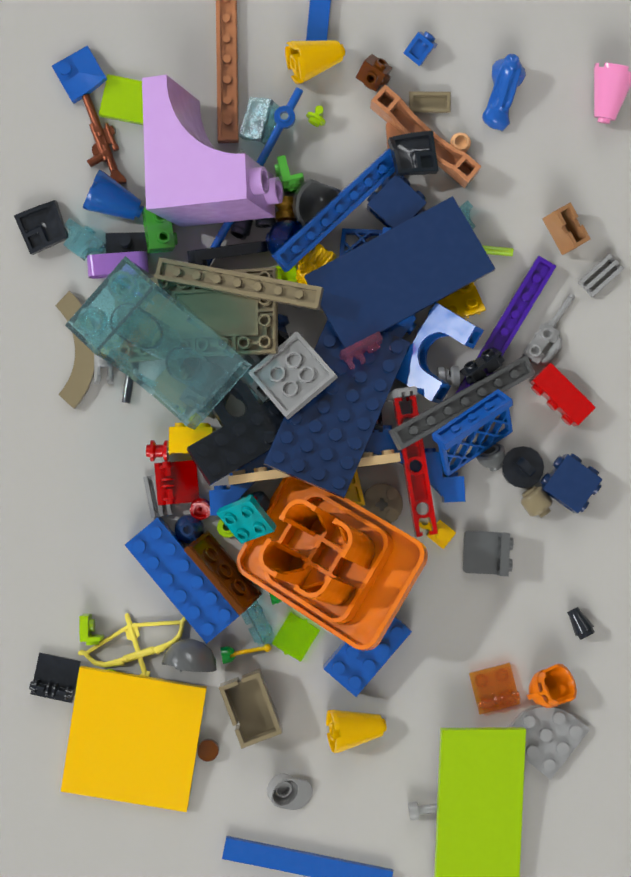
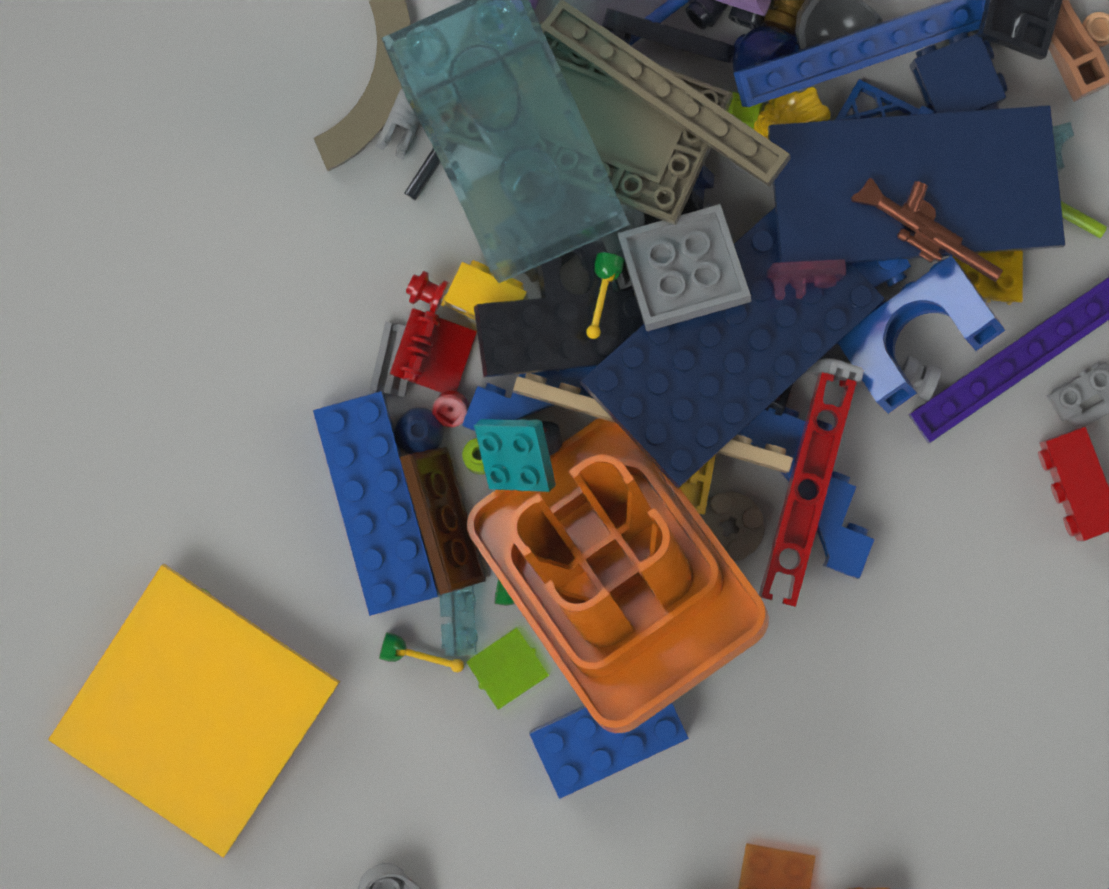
camera: 30 degrees right, 0 degrees up
(55, 677) = (116, 565): black hinge -> none
(86, 627) = (199, 509): lime bracket -> none
(132, 634) = (262, 552): light yellow piece -> none
(190, 656) = (337, 622): dark grey cylinder -> none
(208, 750) = (297, 779): reddish brown tile -> none
(251, 393) = (608, 268): none -> hinge
(252, 706) = (394, 744): dark tan piece -> none
(352, 729) = (531, 845): yellow cone -> none
(419, 296) = (929, 234): none -> copper piece
(444, 534) = (800, 617): yellow plate -> none
(450, 408) = (922, 425): dark grey plate -> none
(468, 424) = (917, 463): blue fence -> none
(487, 552) = (857, 673): dark grey bracket -> none
(489, 359) = (994, 380): black hinge -> none
(492, 457) = (930, 529): dark grey brick -> none
(522, 467) = (970, 567): black tile -> none
(536, 501) = (967, 629): dark tan head -> none
(571, 482) = (1034, 624): dark blue brick -> none
(581, 625) = (950, 845): black cone -> none

